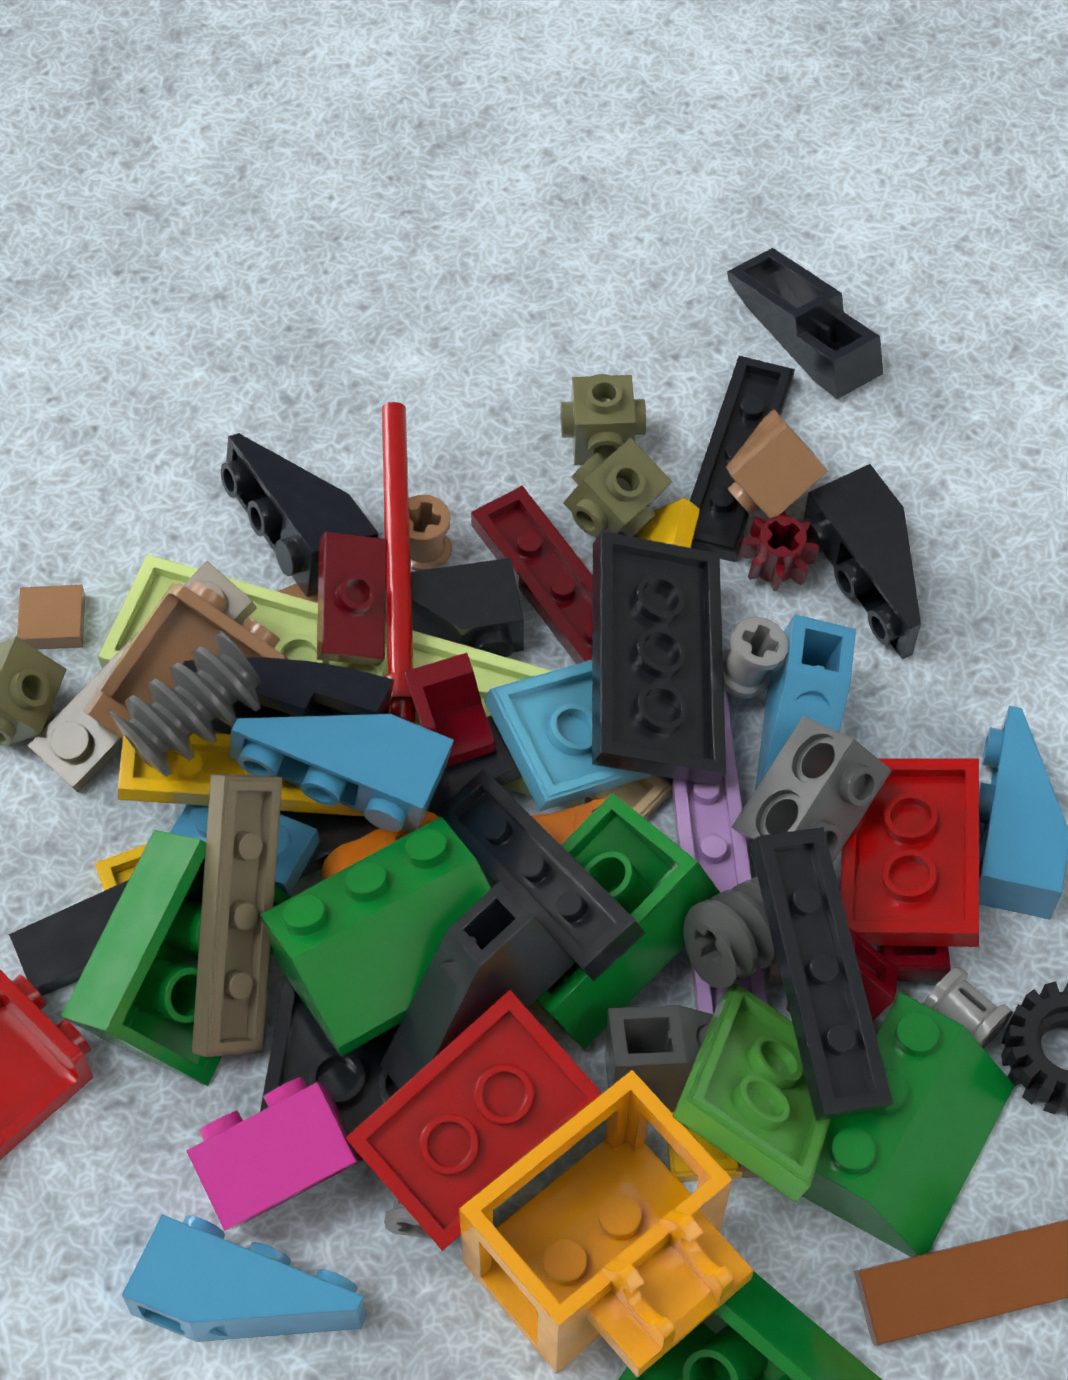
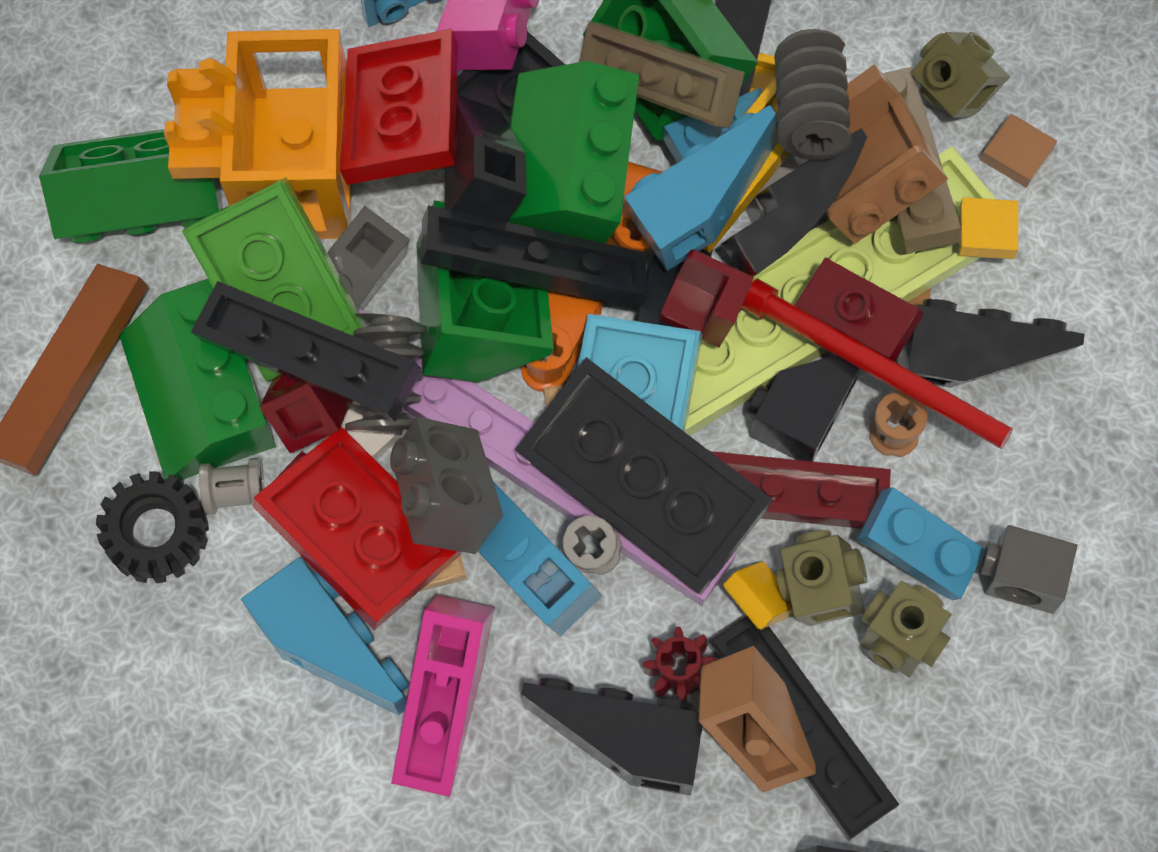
camera: 130 degrees right, 10 degrees up
(169, 560) = (988, 228): none -> yellow tile
(472, 374) = (1028, 568): none -> dark grey brick
(518, 455) = (921, 544): none -> dark azure plate
(955, 701) = (442, 693): none -> dark pink slope

